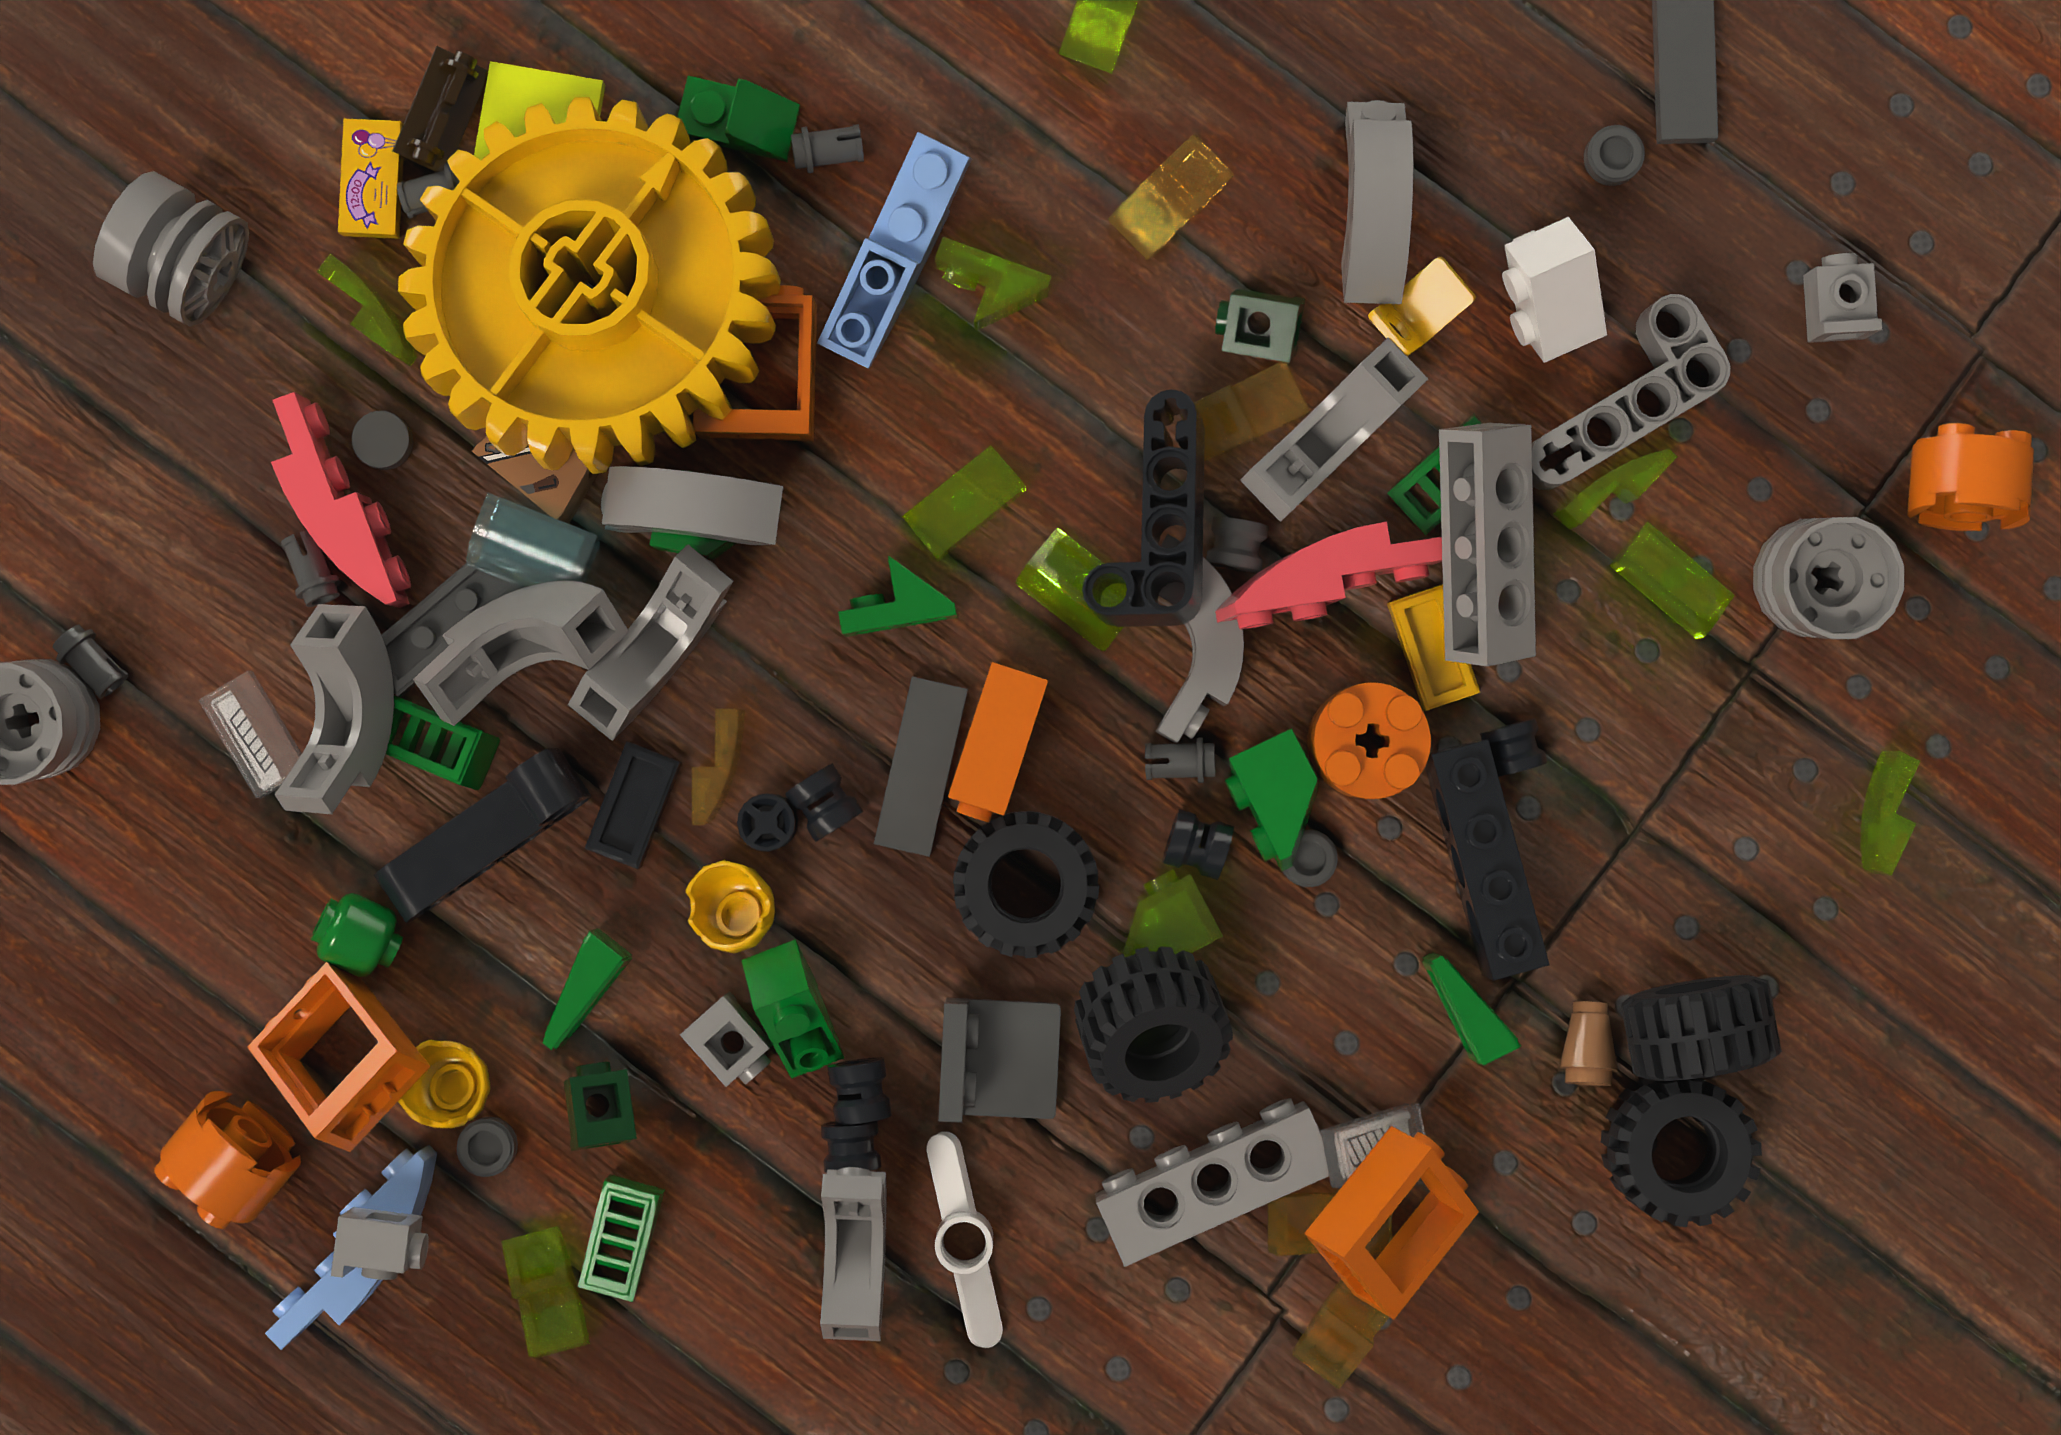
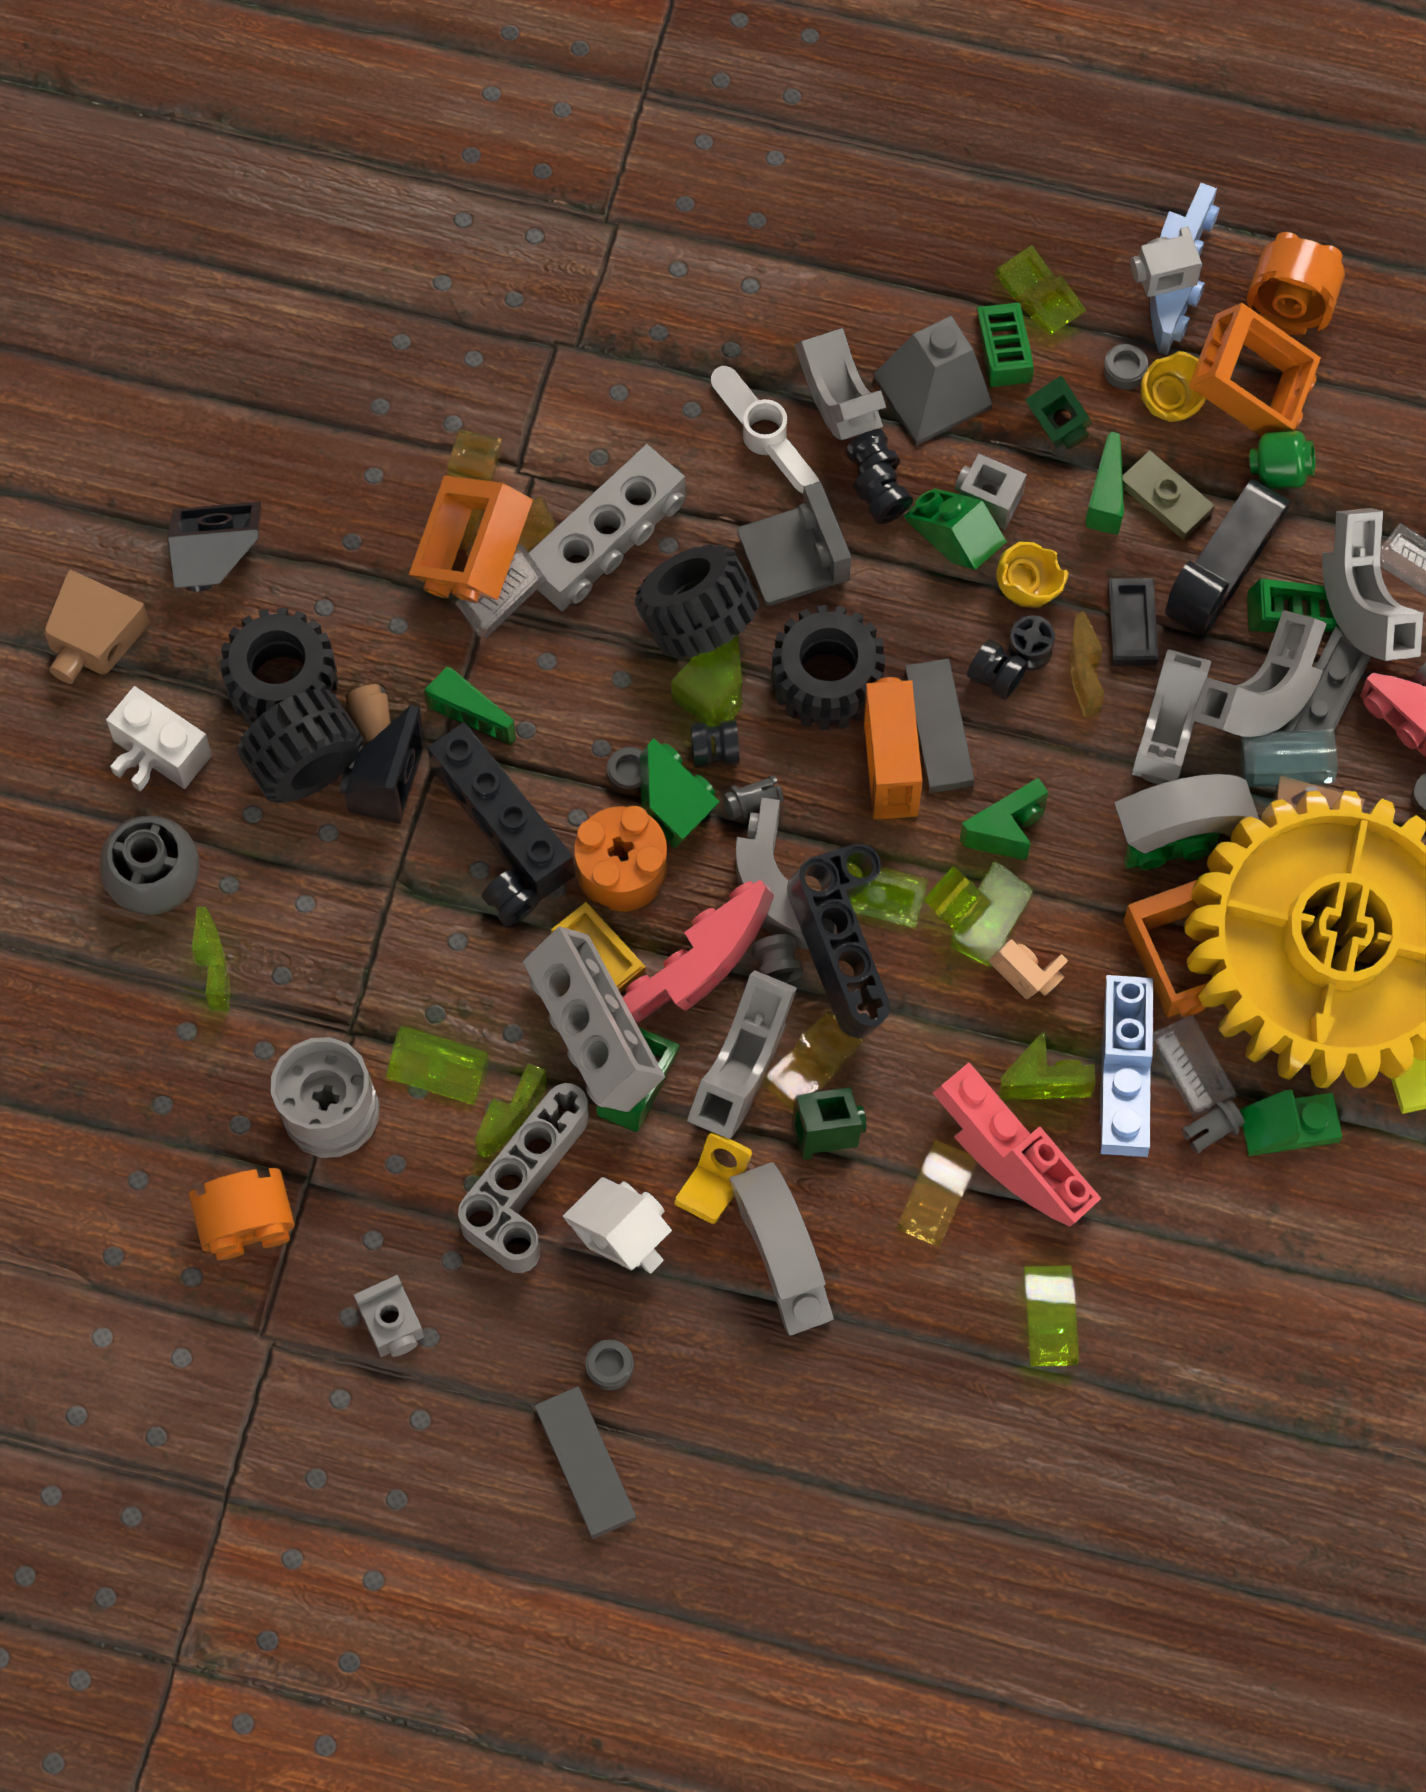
camera: 160 degrees right, 20 degrees down
(517, 952) = (1167, 495): none -> olive plate
(732, 1216) = (934, 381): none -> dark grey slope
(815, 230) = (1193, 1066): none -> clear tile
(951, 400) = (1021, 970): none -> light nougat bracket
(1001, 515) = (958, 901): none -> clear neon green slope
(1067, 200) = (1019, 1160): none -> coral slope
(1602, 962) = (386, 769): none -> black slope
(1698, 1361) = (210, 542): none -> slope
(1854, 1118) = (156, 740): none -> white brick
(1882, 1302) = (91, 627): none -> medium nougat torso
(1962, 964) = (148, 890): none -> dark grey wheel

